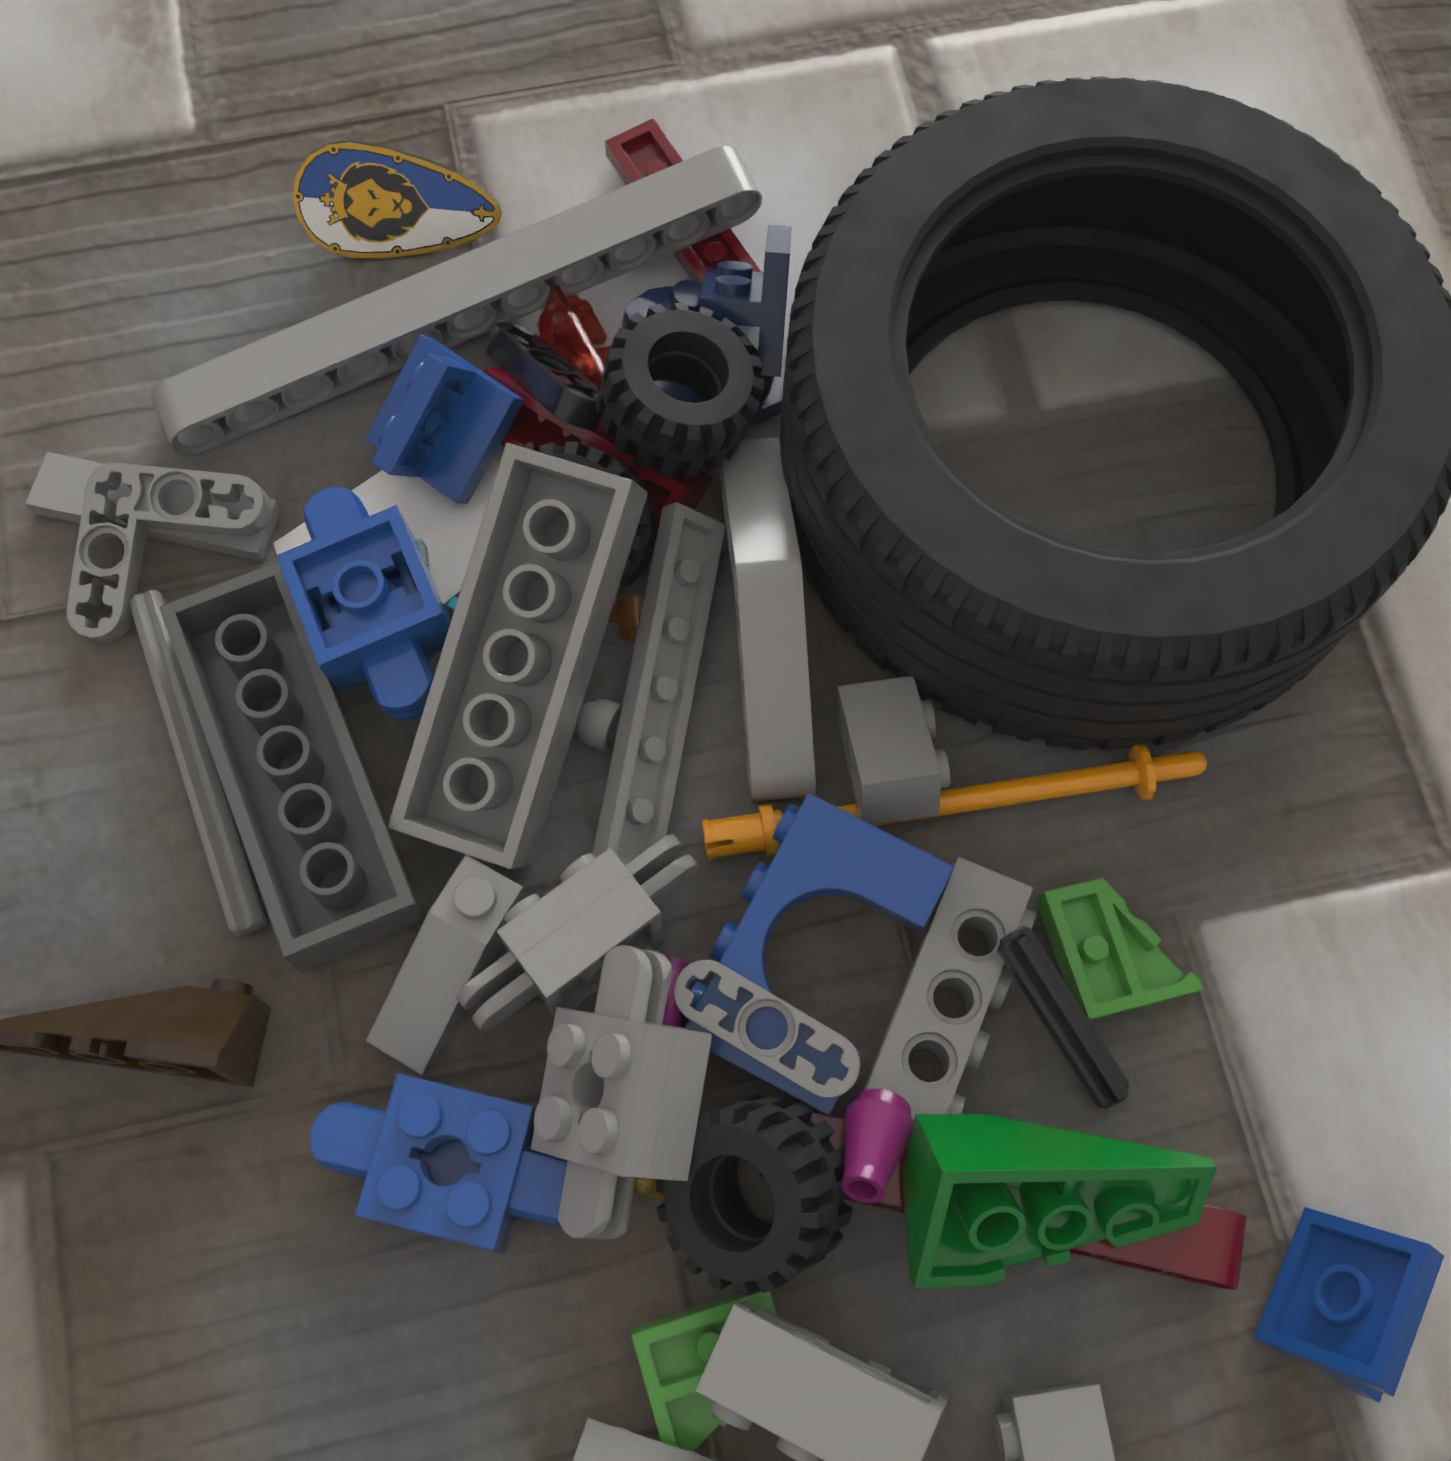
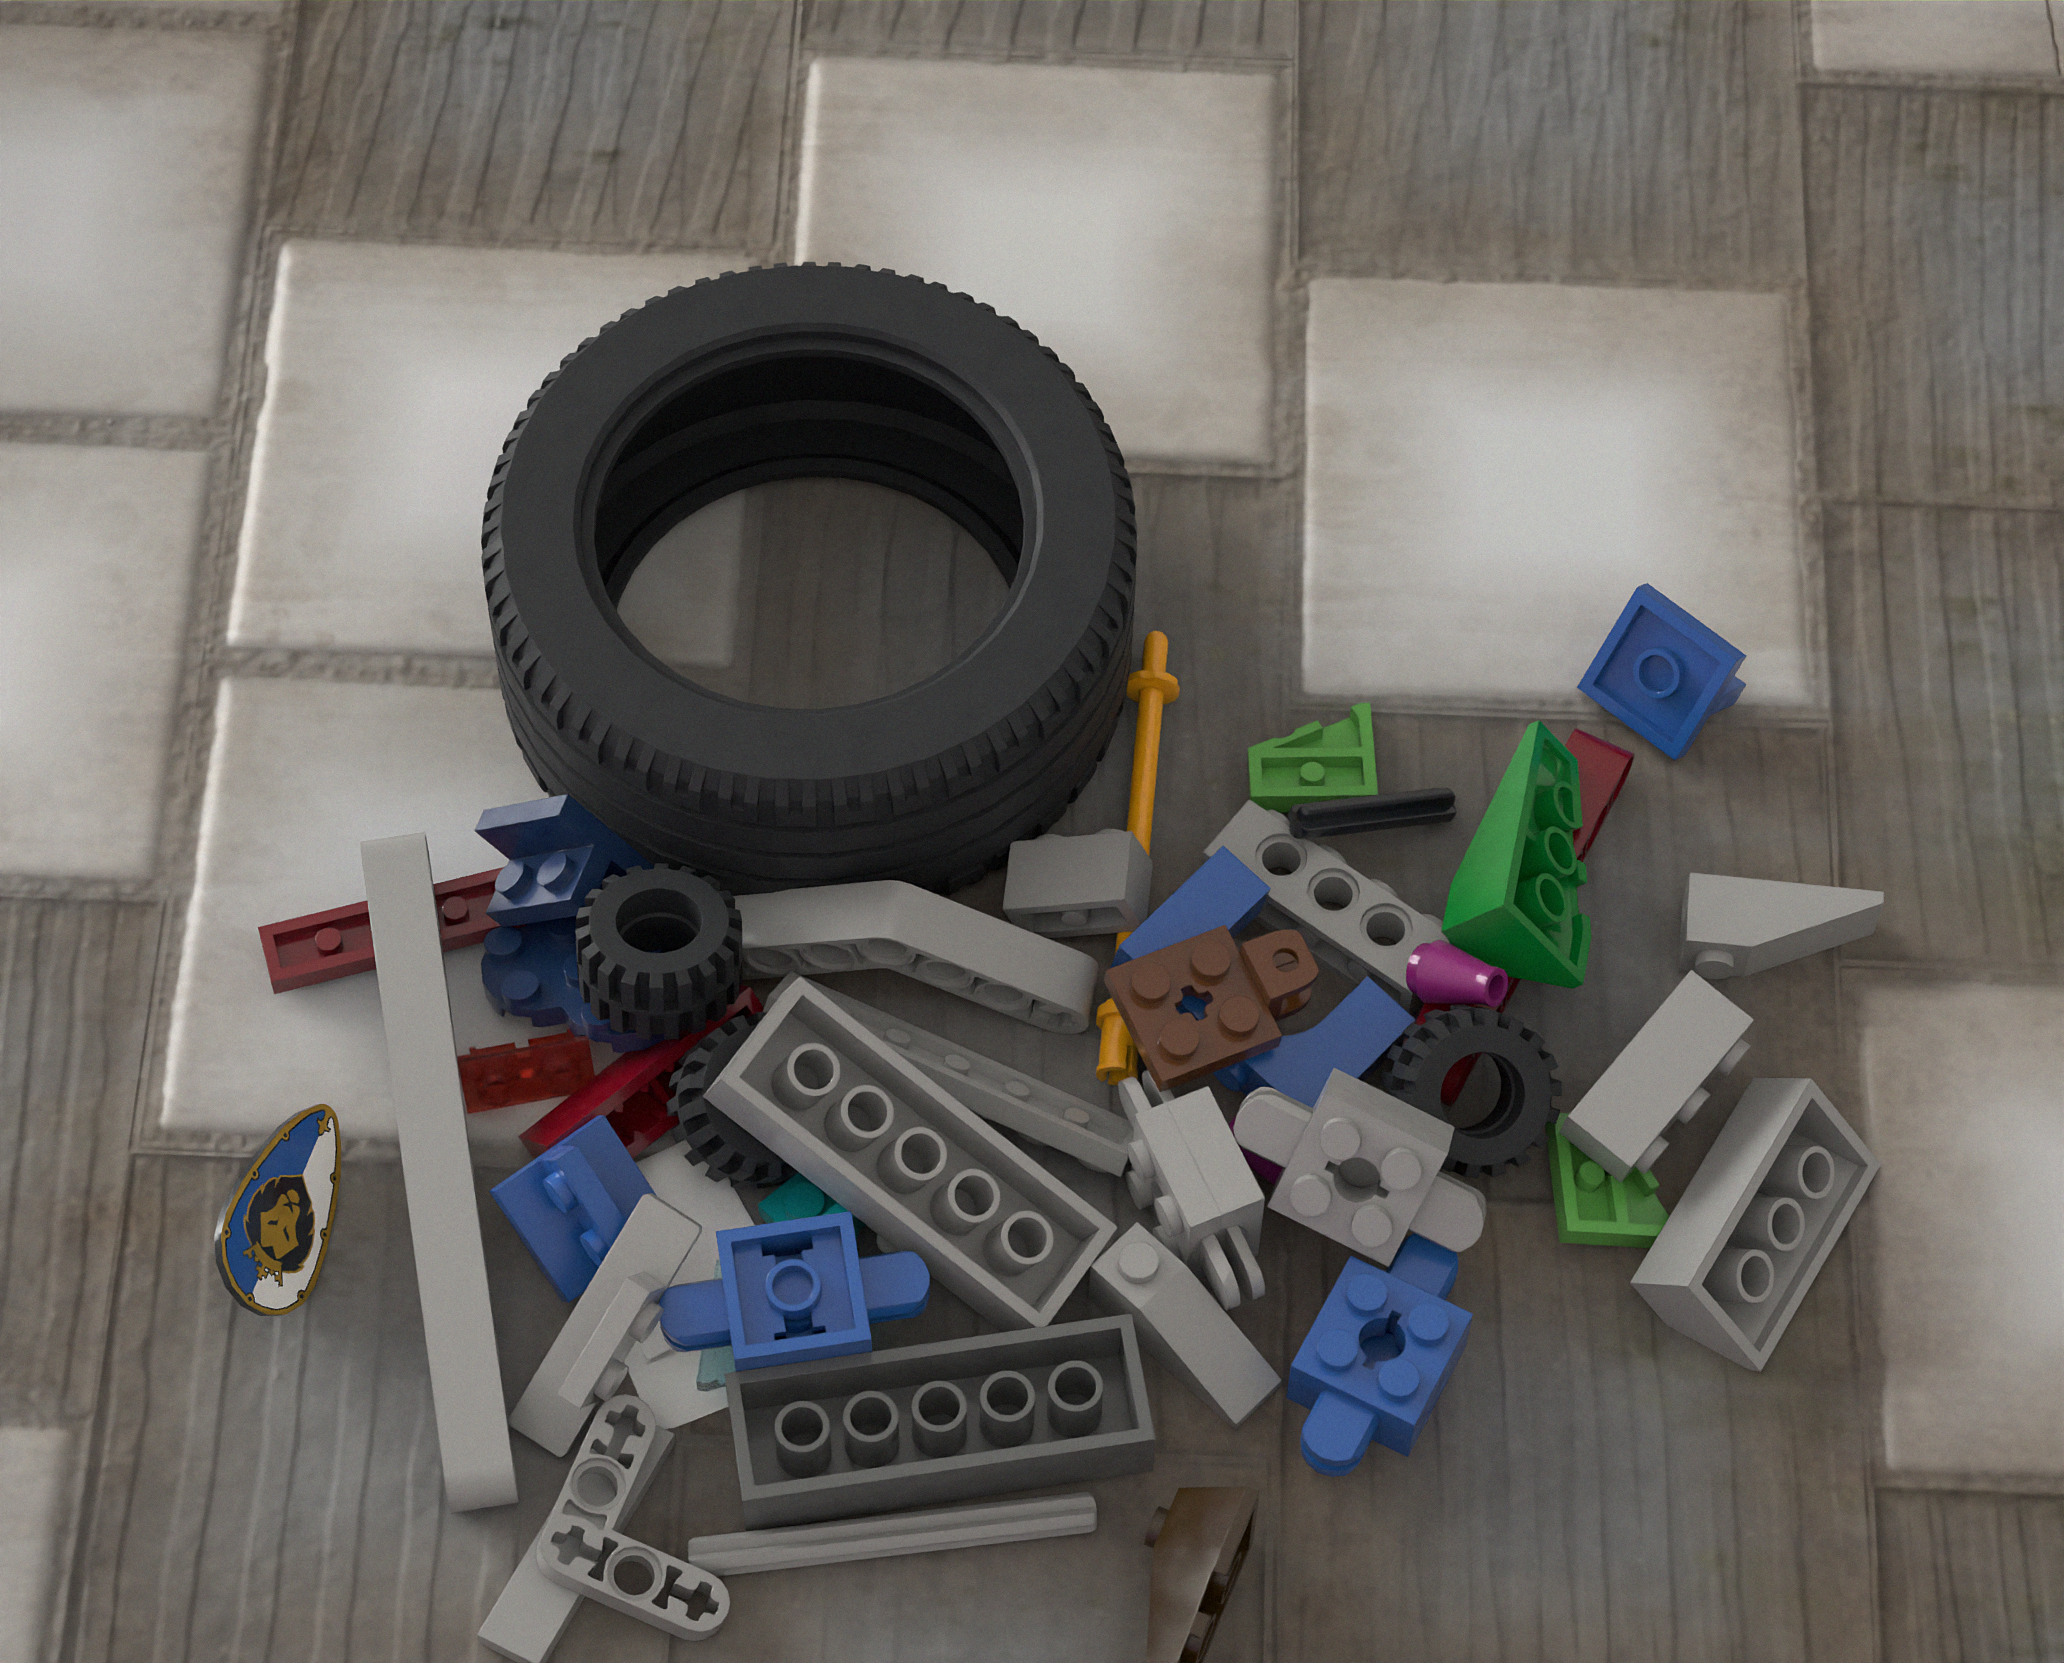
camera: 75 degrees left, 10 degrees down
(322, 457) = (605, 1325): none -> light grey bracket
(545, 375) = (563, 1096): black beam -> none
(713, 1016) = (1348, 998): light grey beam -> none
(790, 919) = (1243, 996): none -> reddish brown plate

